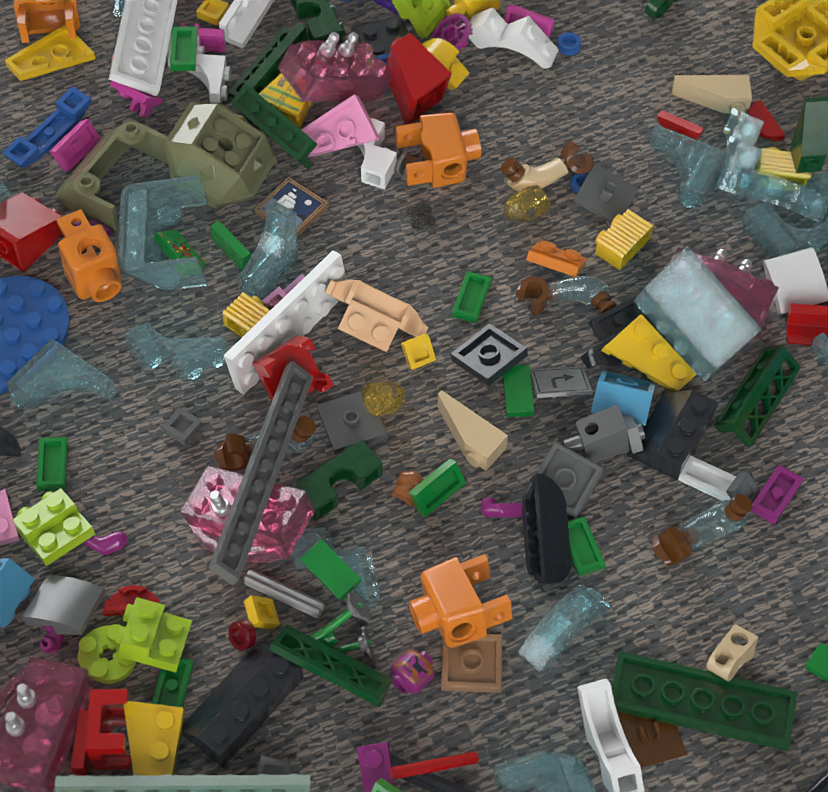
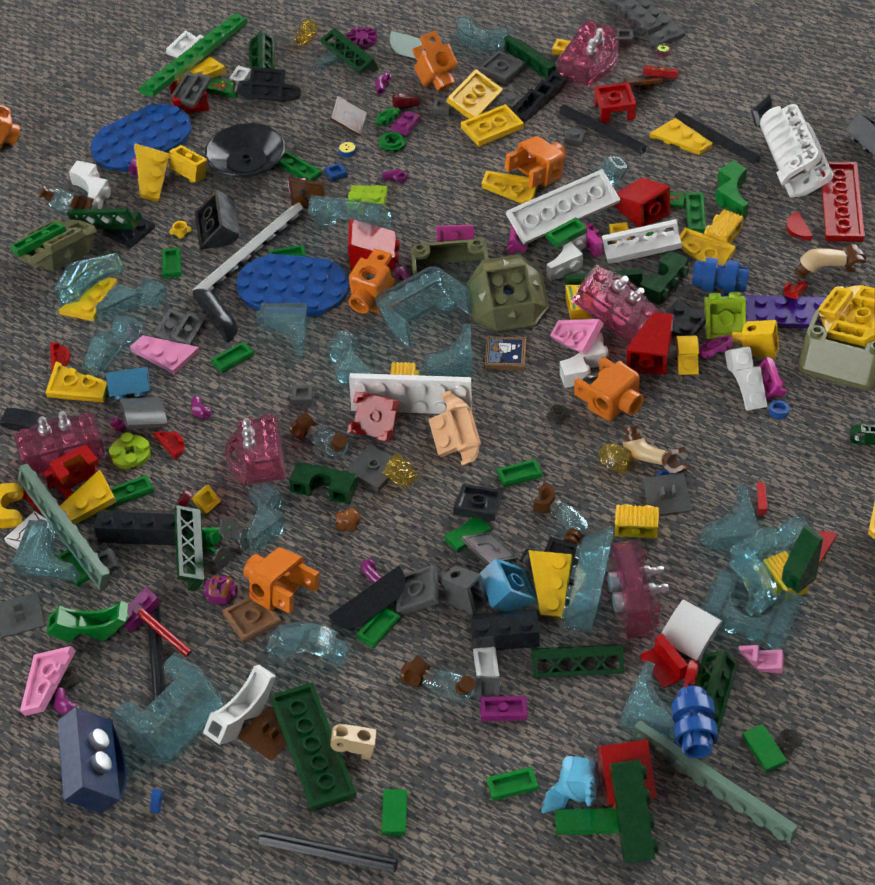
camera: 60 degrees right, 10 degrees down
(52, 526) = (189, 379): lime plate -> none
(69, 112) = (431, 219): blue slope -> none
(152, 635) = (151, 459): lime plate -> none
(176, 246) = (423, 322): green tile -> none
(229, 244) = (448, 336): green tile -> none
(260, 474) = (277, 428): dark grey plate -> none
(275, 124) = (551, 306): dark green fence -> none
(284, 593) = (228, 498): light grey axle -> none
(330, 570) = (251, 508): green tile -> none
(418, 351) = (450, 468): yellow plate -> none
(437, 487) = (357, 531): green tile -> none
(475, 436) = (410, 527): tan slope -> none
(549, 256) = (585, 495): orange plate -> none
(635, 434) = (478, 603): plate -> none
(715, 91) = (818, 508): tan slope -> none

